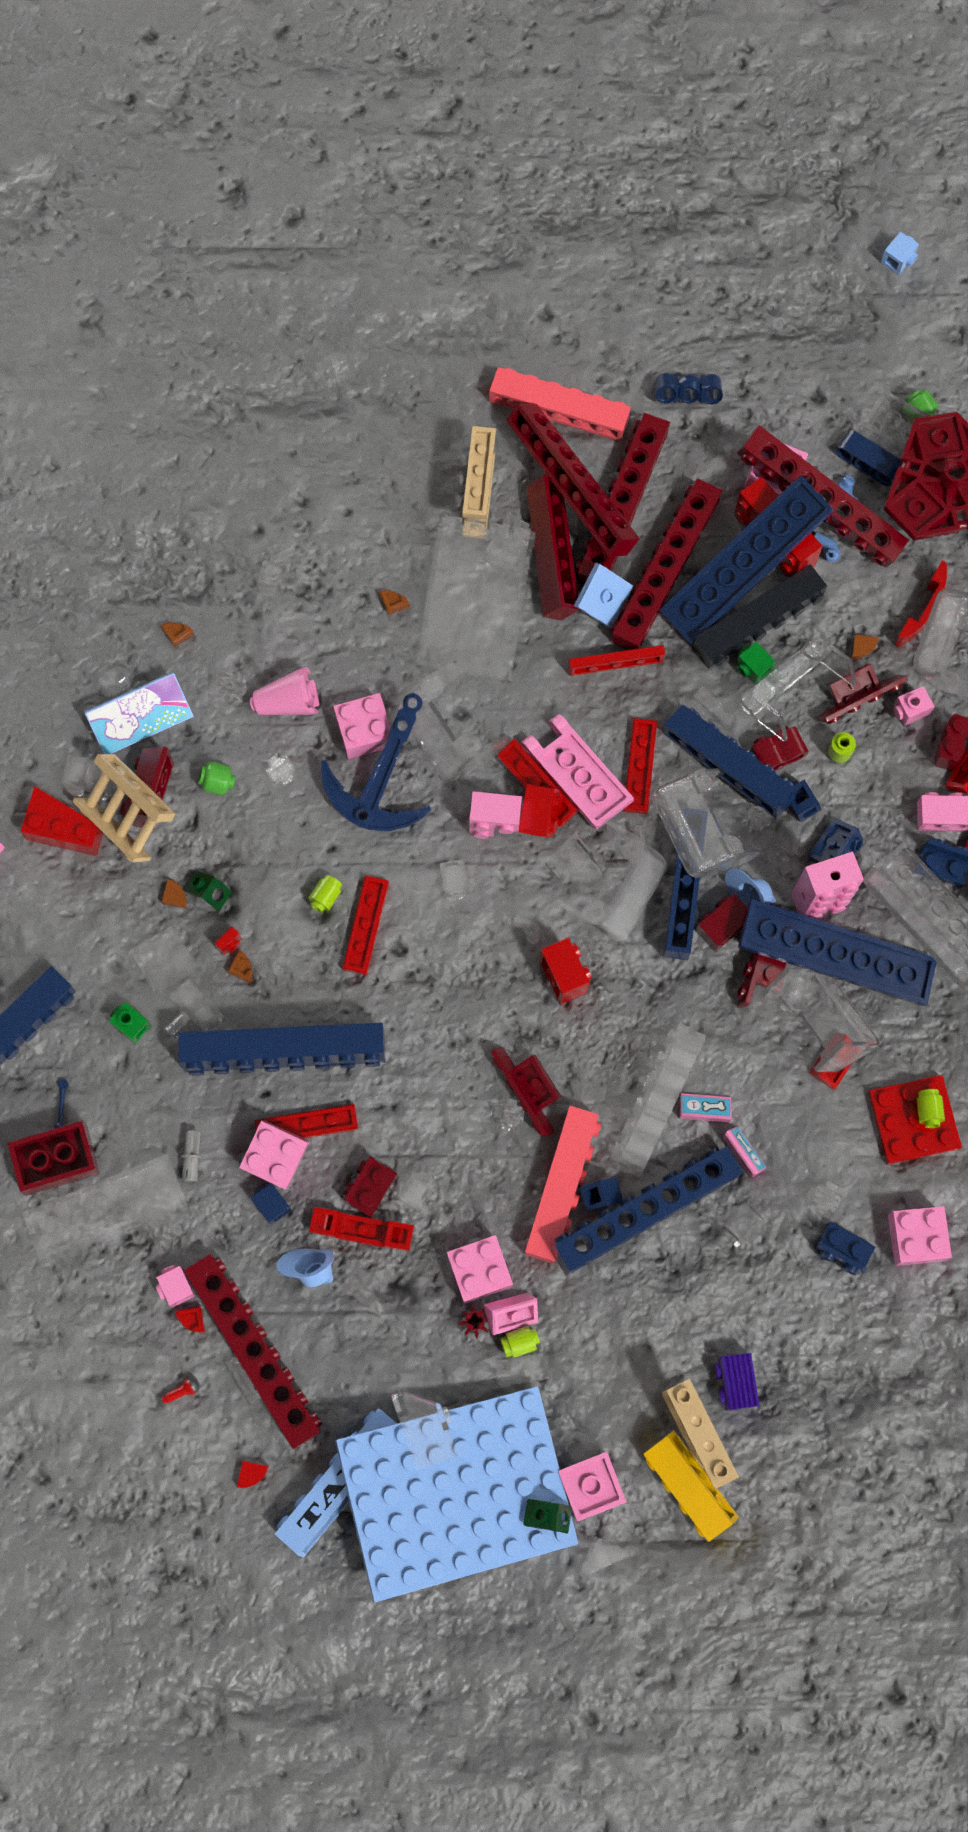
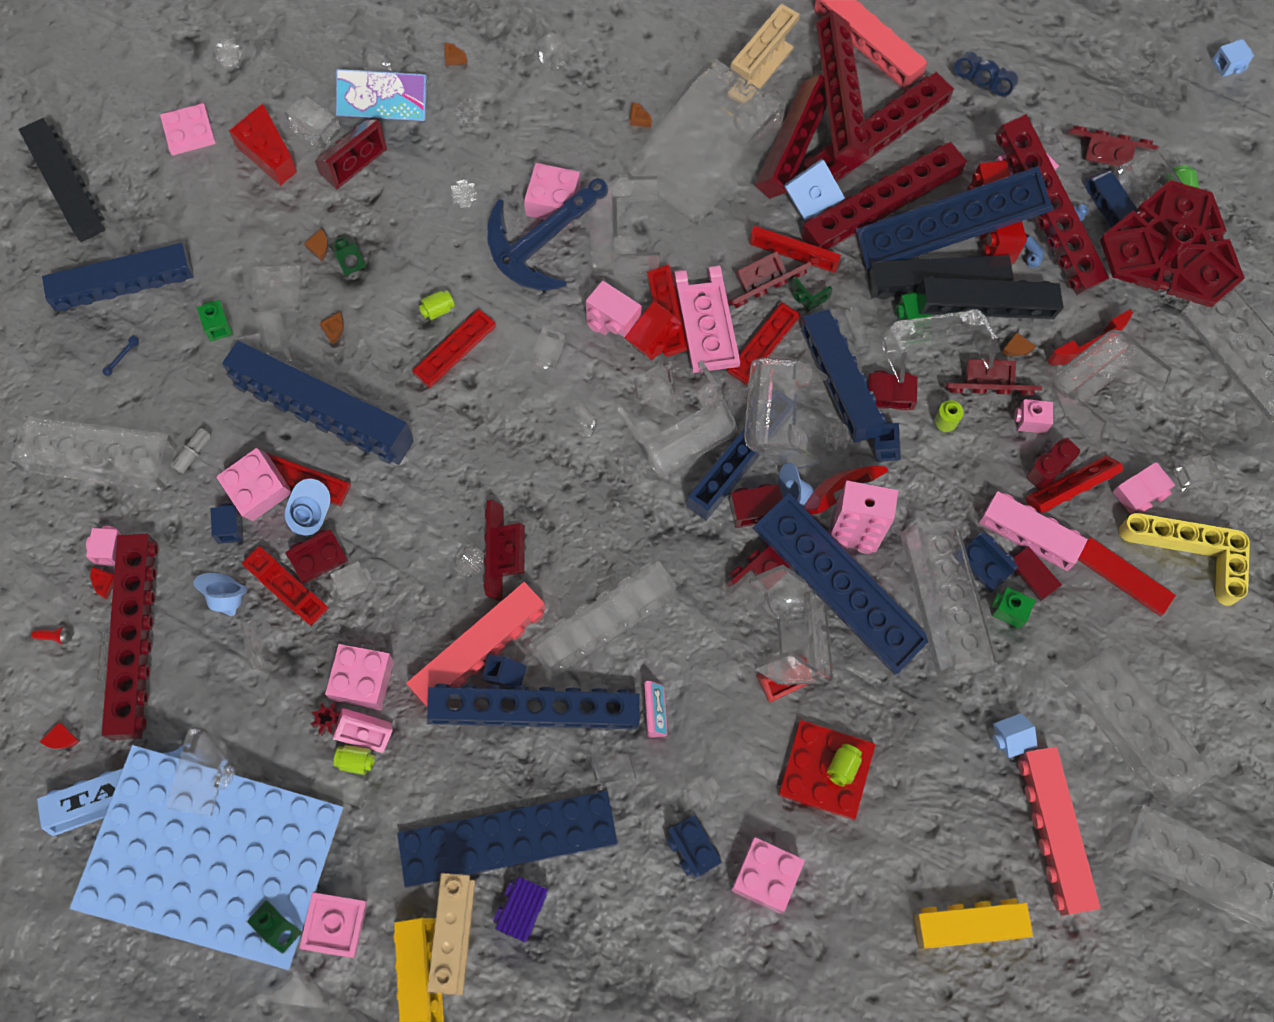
camera: 30 degrees right, 5 degrees down
(53, 1158) = (81, 389): dark red brick -> none
(141, 798) = (331, 150): tan fence -> none
(216, 778) = (409, 173): bright green head -> none
(228, 942) = (334, 300): red plate -> none
(287, 696) = (508, 140): bright pink cone -> none
(335, 1148) = (307, 507): none -> light blue piece
(565, 970) = (592, 468): red brick -> none
(604, 701) = (763, 274): none -> dark red bracket
(651, 703) = (803, 297): none -> dark green bracket
(688, 1332) = (507, 839): none -> dark blue plate
(705, 1108) = (644, 653): slope -> none
(780, 885) = (824, 497): none -> red slope
(816, 617) = (990, 297): none -> black brick
(836, 841) = (909, 493): dark blue bracket -> none
(840, 406) = (1109, 149): none -> dark red bracket

